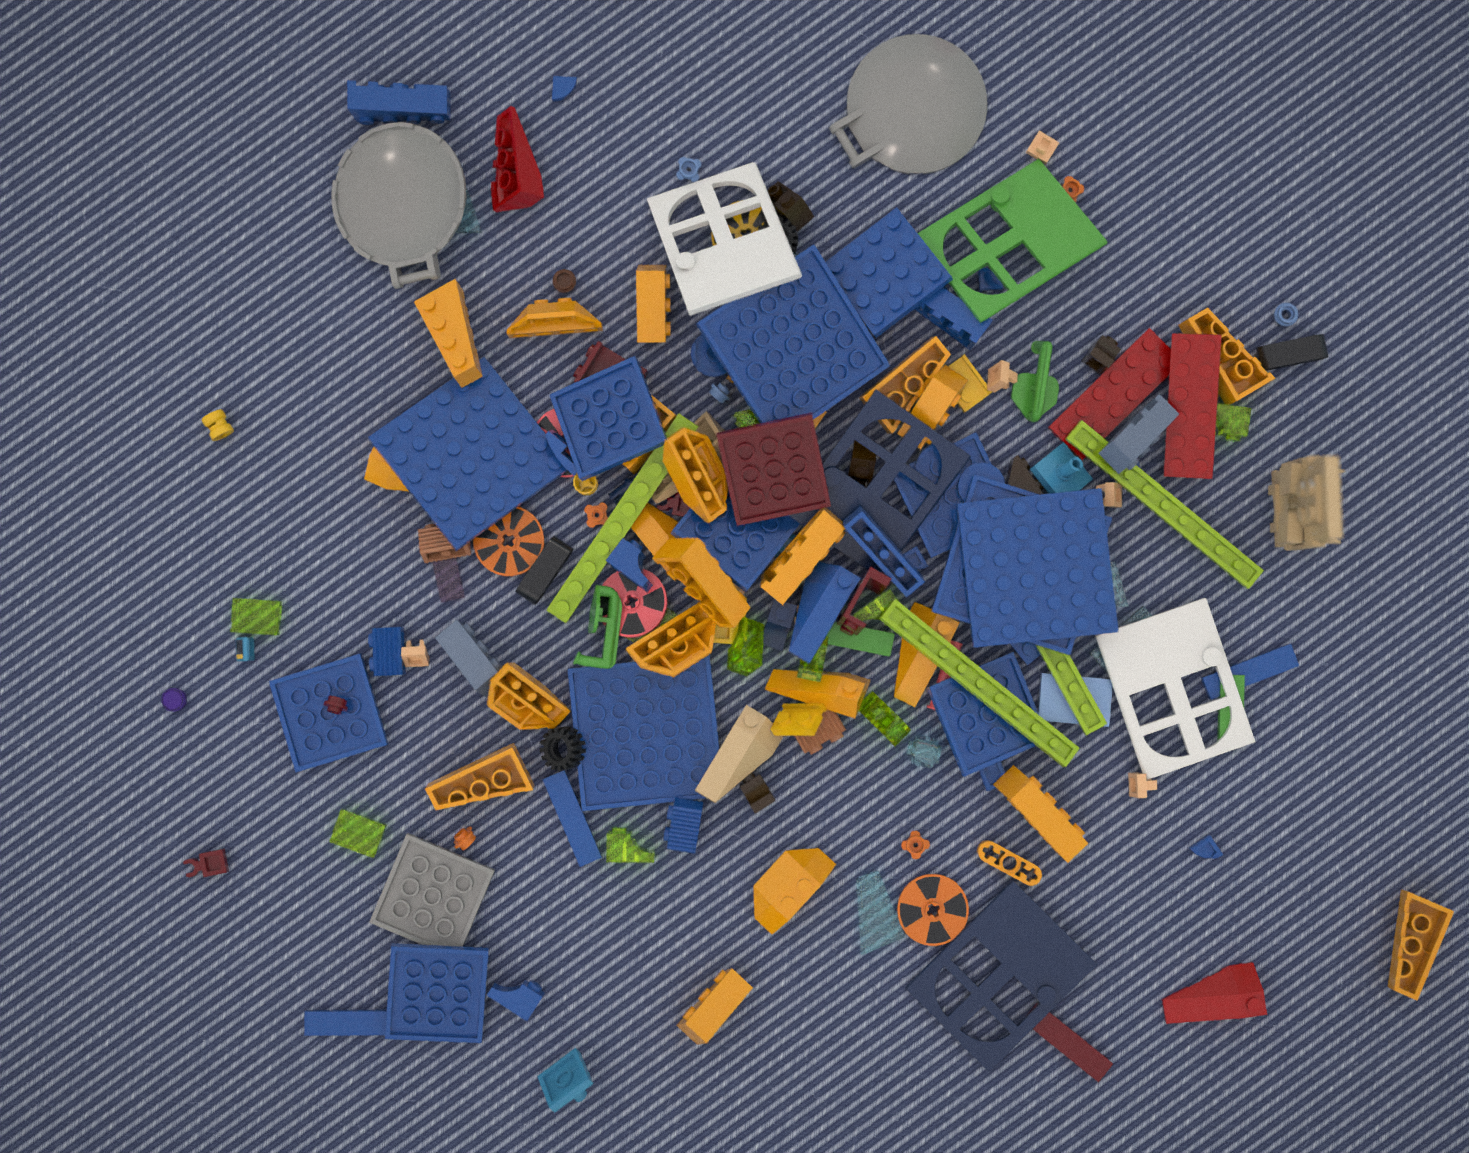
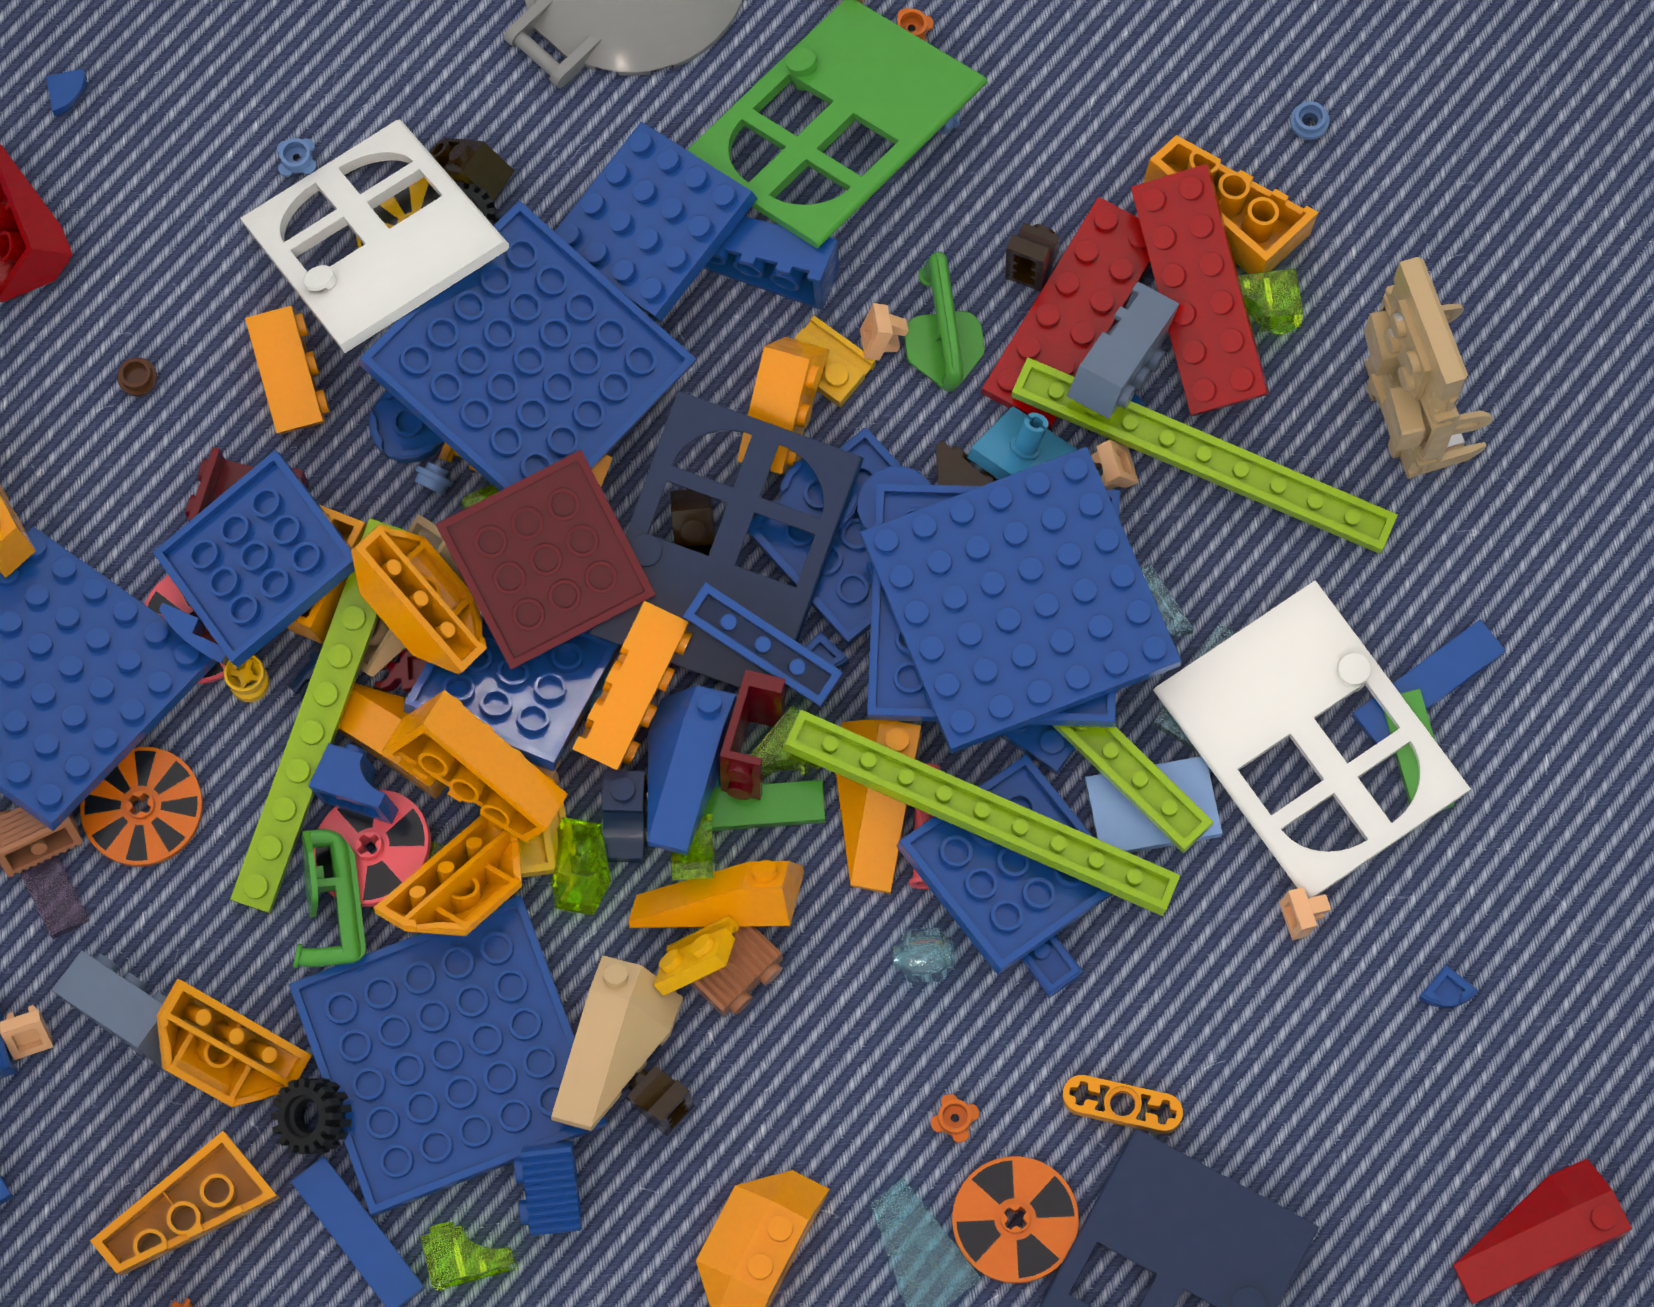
camera: 10 degrees left, 15 degrees down
(544, 570) = (211, 836): black beam -> none
(553, 319) = (133, 438): light orange wedge -> none
(592, 510) = (267, 721): orange plate -> none
(884, 719) = (842, 921): clear neon green arch -> none
(910, 378) = (731, 371): light orange wedge -> none
(988, 281) = (817, 191): blue tile -> none
(1041, 813) = (1151, 1000): light orange wedge -> none
(1292, 352) = (1338, 171): black beam -> none

